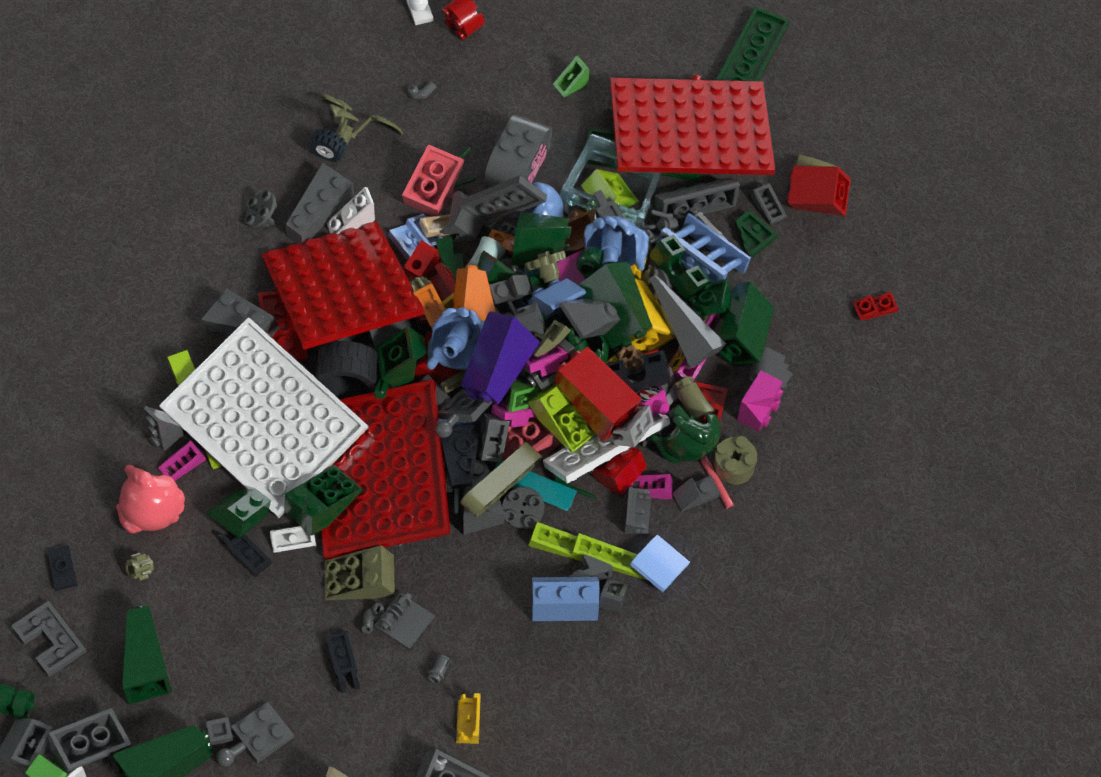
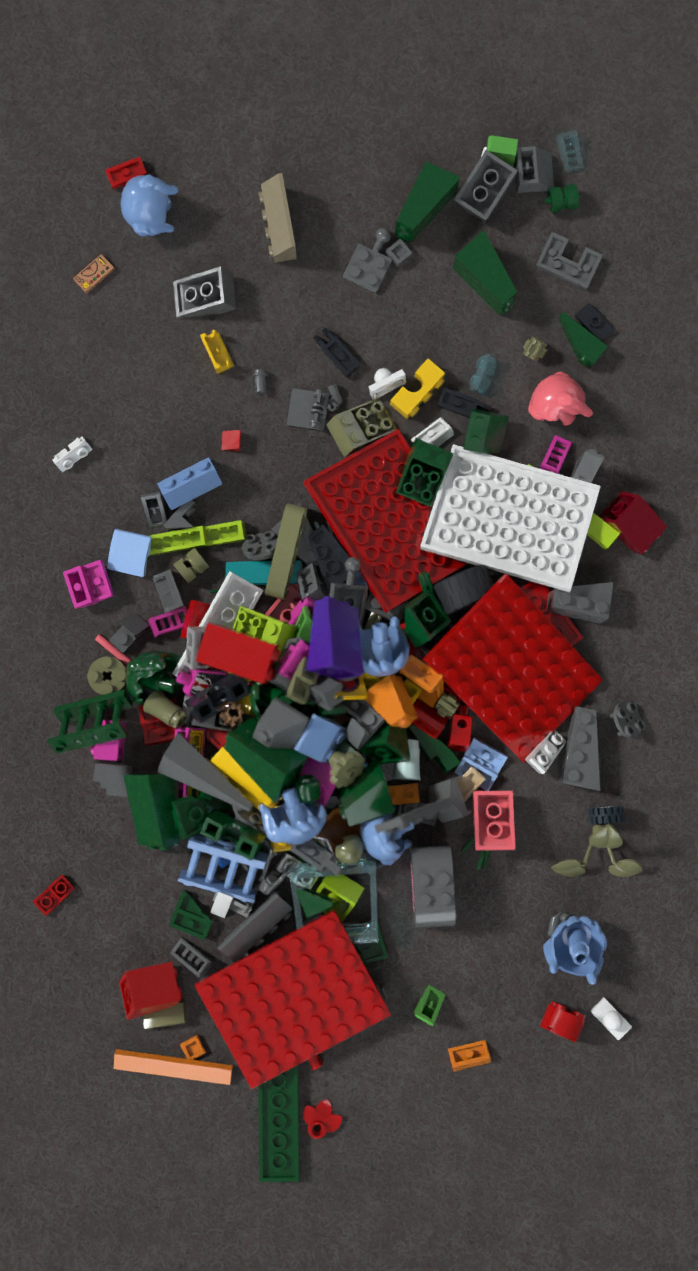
camera: 155 degrees right, 25 degrees up
(87, 547) = (584, 344): none -> dark green slope
(148, 368) = (634, 521): none -> dark red slope
(212, 565) = (479, 381): none -> clear light blue hinge
(297, 575) = (407, 402): none -> yellow arch
(309, 607) = (386, 382): none -> white tile
(419, 59) = (577, 948): none -> medium blue piece
(499, 625) = (231, 440): none -> slope
(557, 33) = (469, 1055): none -> orange slope
(577, 206) = (351, 850): none -> olive hair
(595, 520) = (198, 565): none -> olive wheel
(631, 185) = (314, 902): none -> dark green slope
(683, 687) = (79, 449): none -> white hinge
(711, 44) = (321, 1116): none -> red plate
(715, 552) = (88, 584): none -> dark pink brick
(719, 228) = (221, 904): none -> white sticker
(772, 438) = (85, 709): none -> dark green fence
(801, 138) = (193, 1048): none -> orange tile
(826, 131) = (172, 1067): none -> orange tile

